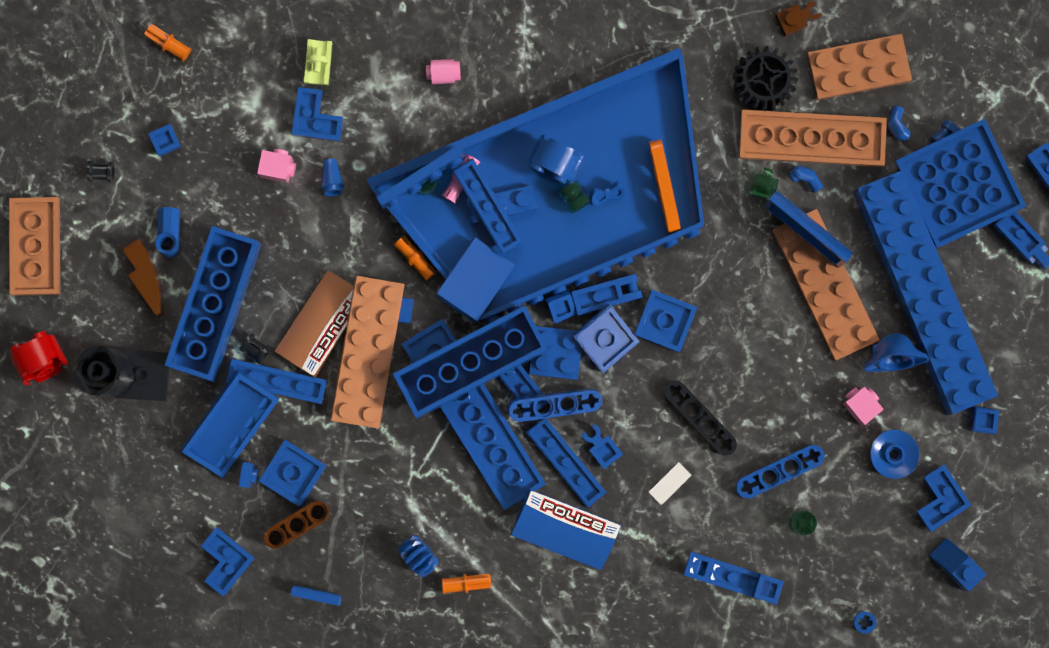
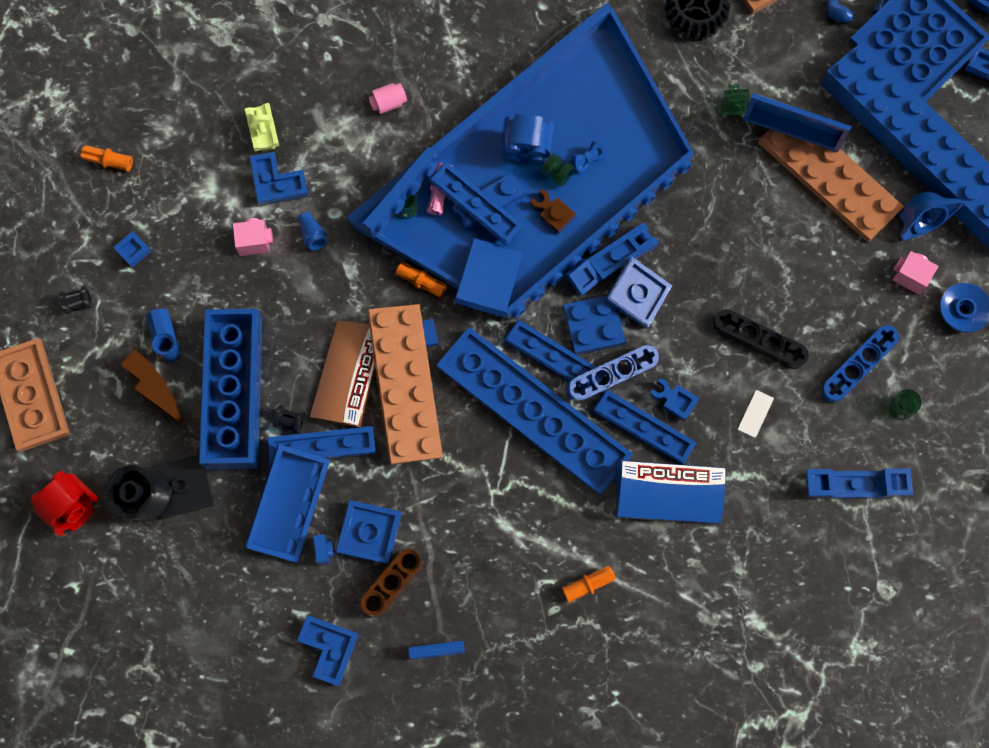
camera: 15 degrees left, 10 degrees down
(418, 556) = (529, 570): blue gear -> none
(470, 362) = (513, 355): blue brick -> none
(558, 237) = (555, 213): none -> reddish brown plate
(664, 186) = (640, 131): orange beam -> none
(665, 321) = (690, 257): blue plate -> none
(808, 175) = (774, 81): blue arm -> none
(812, 138) = (763, 46): nougat plate -> none

